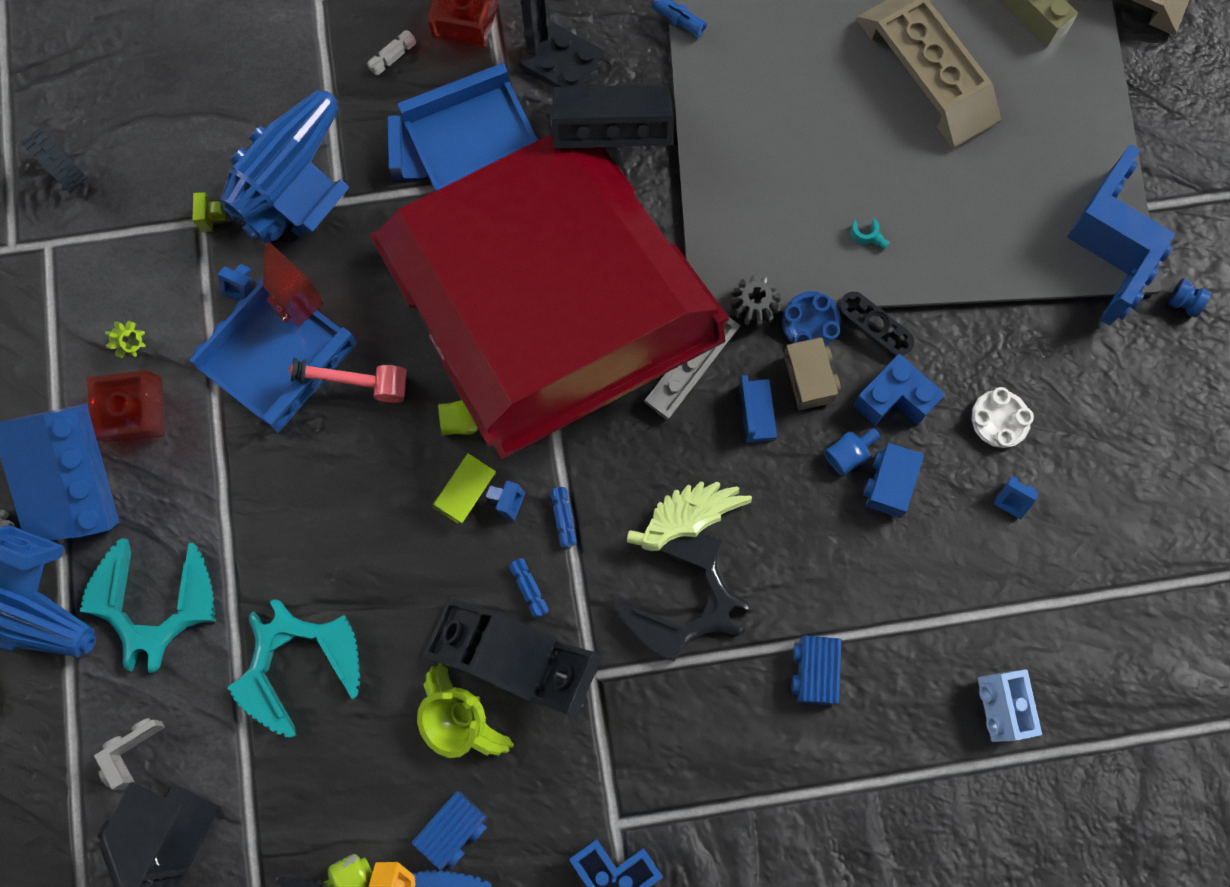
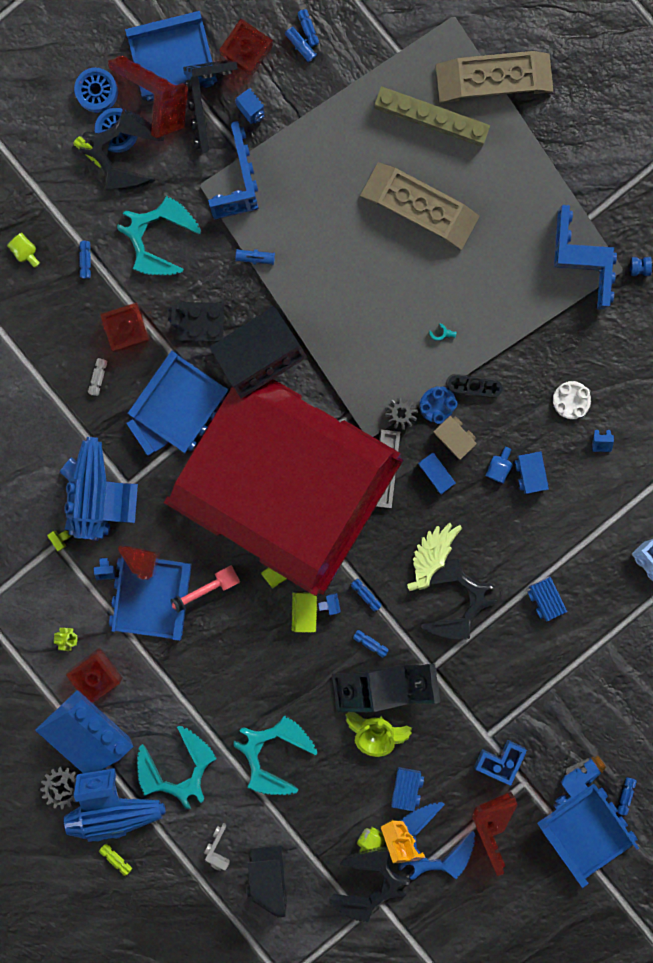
camera: 30 degrees left, 15 degrees up
(901, 387) = (506, 415): blue brick -> none

